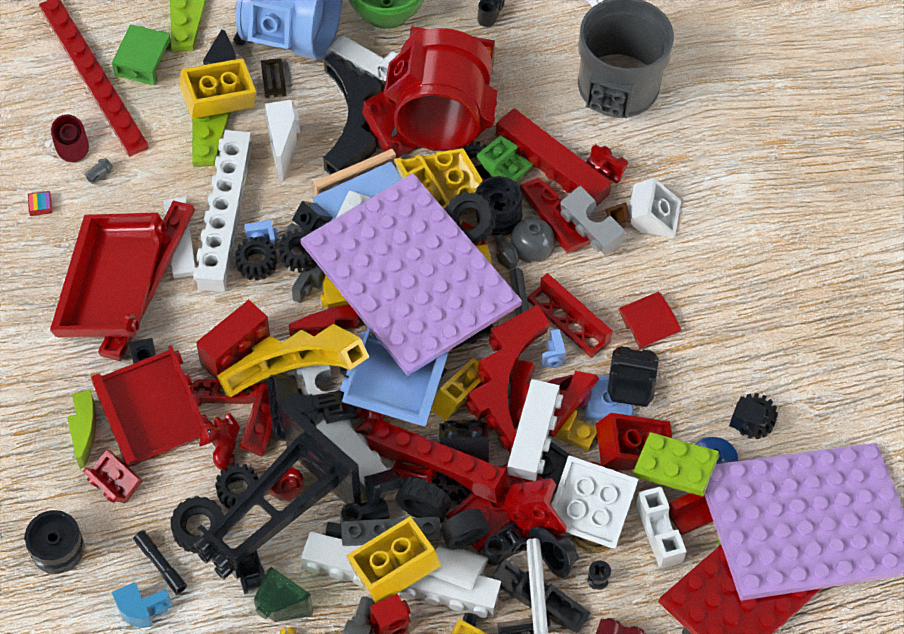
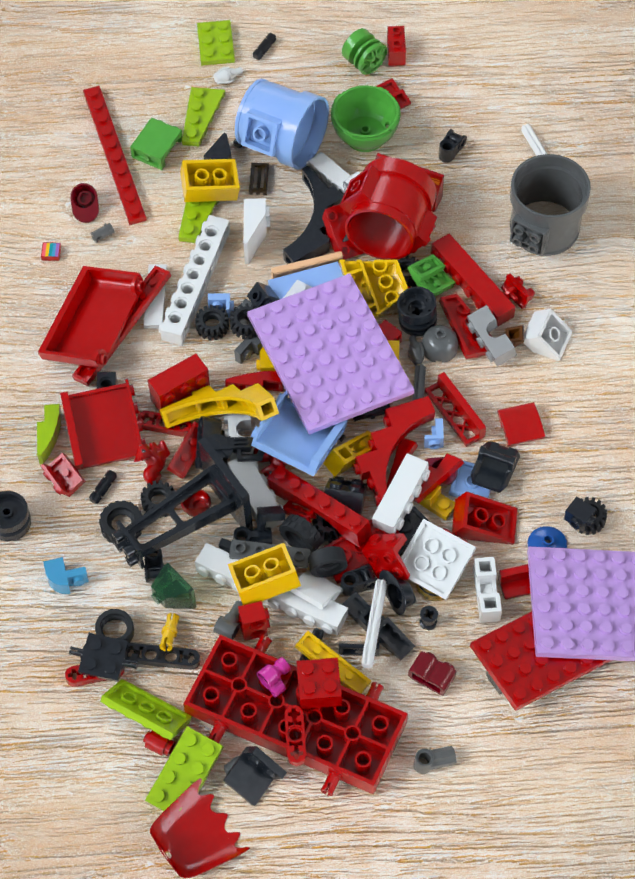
camera: 15 degrees right, 0 degrees up
(165, 483) = (102, 486): none -> black axle
(168, 573) = (81, 536): black piece -> none
(486, 211) = (403, 313): black tyre -> none
(676, 464) = (510, 541): lime plate -> none

